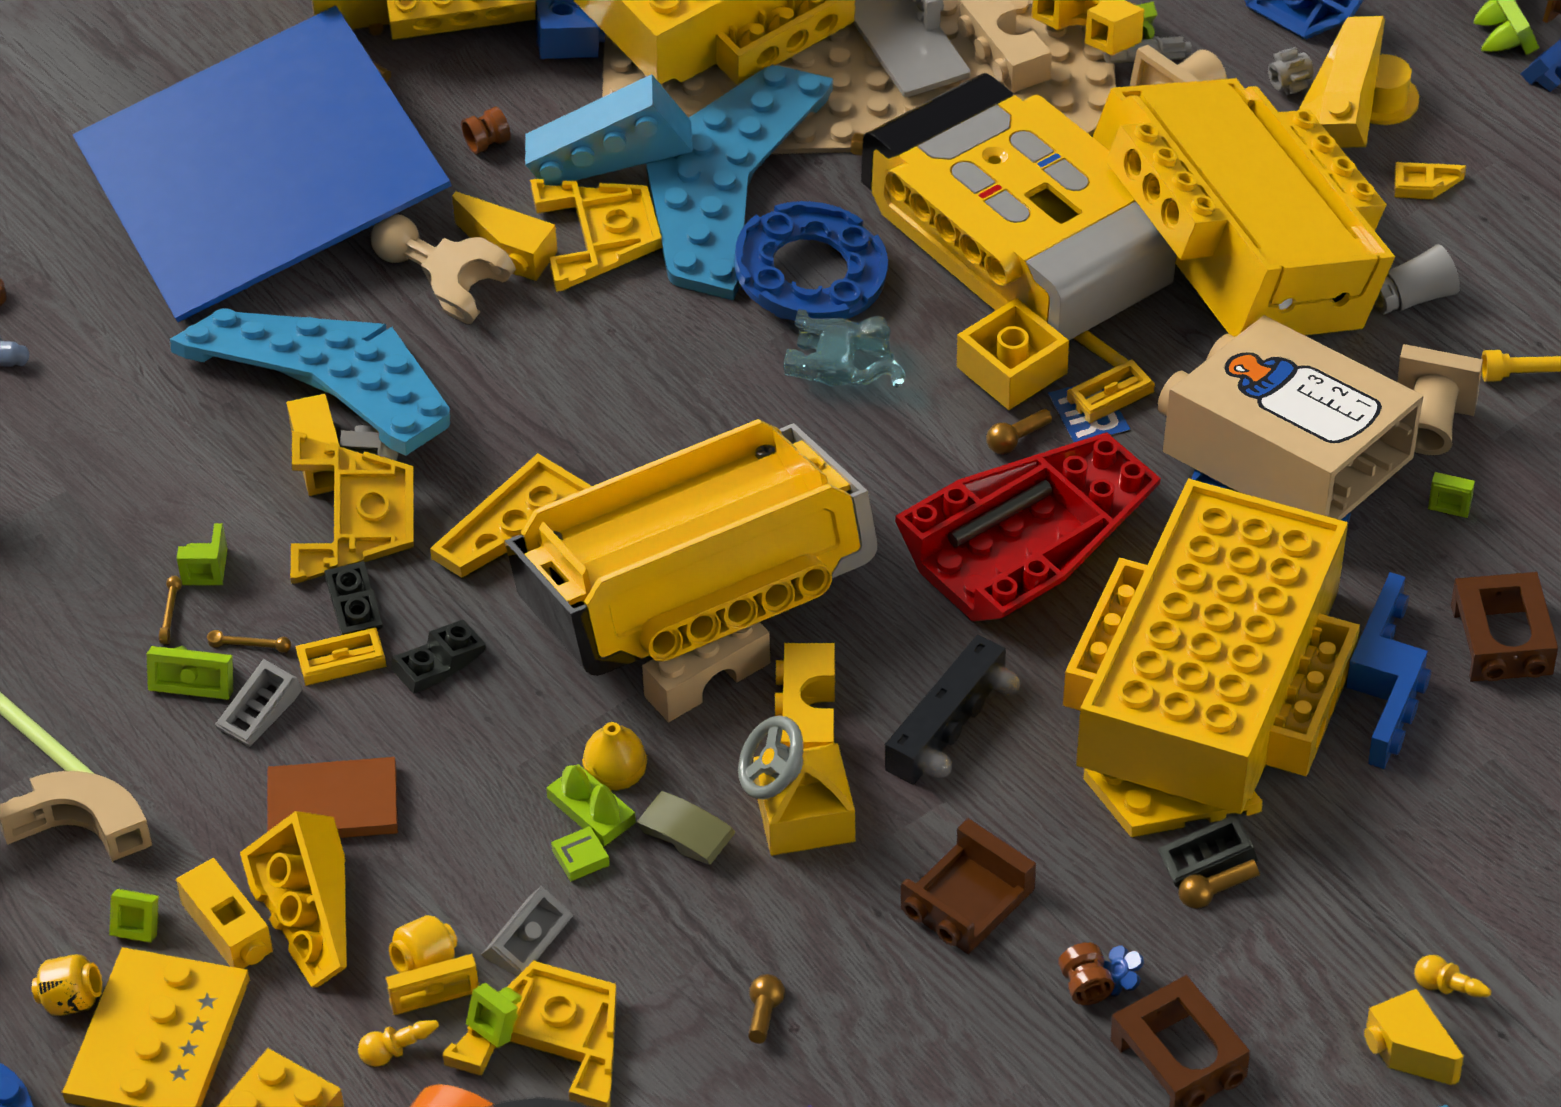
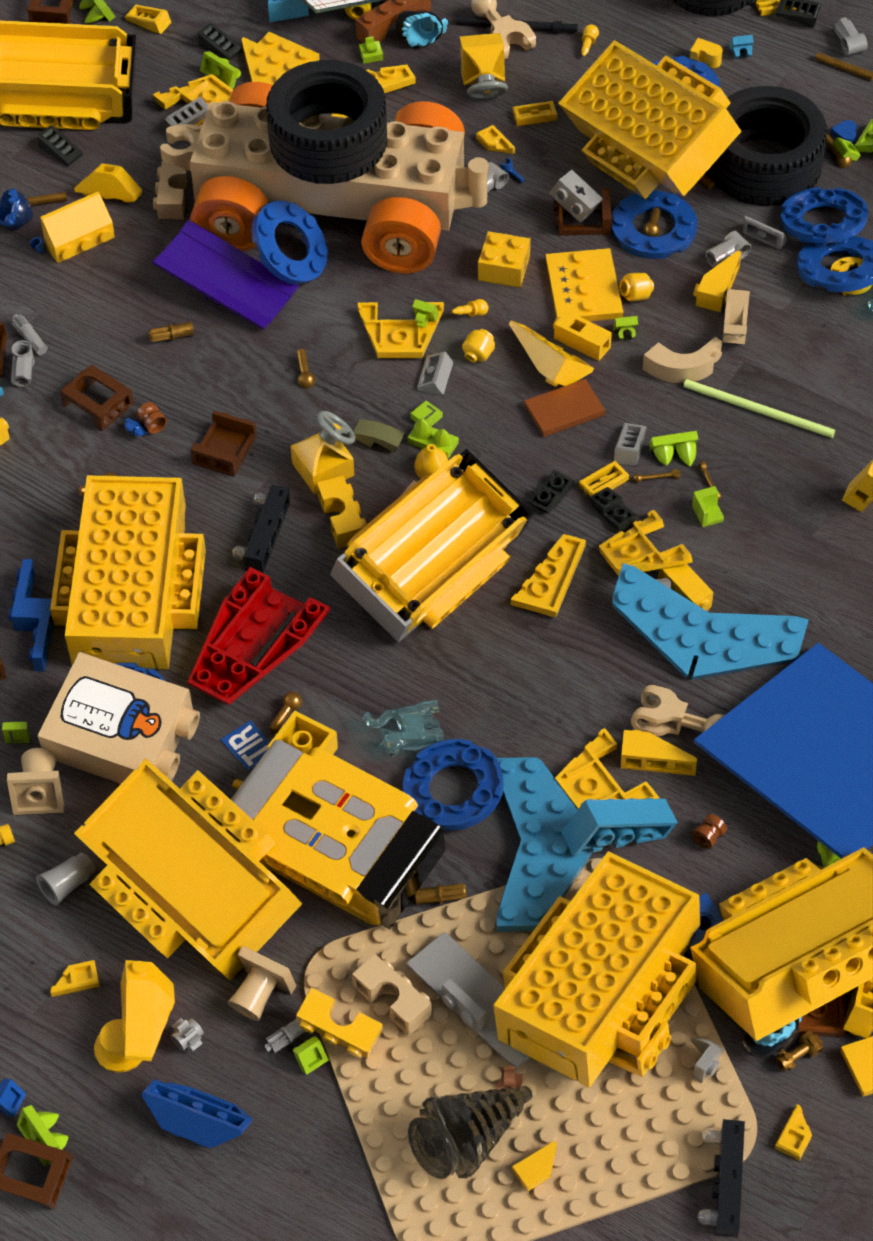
camera: 160 degrees right, 5 degrees up
(432, 984) = (456, 336): yellow tile -> none
(1115, 394) = (242, 756): yellow tile -> none

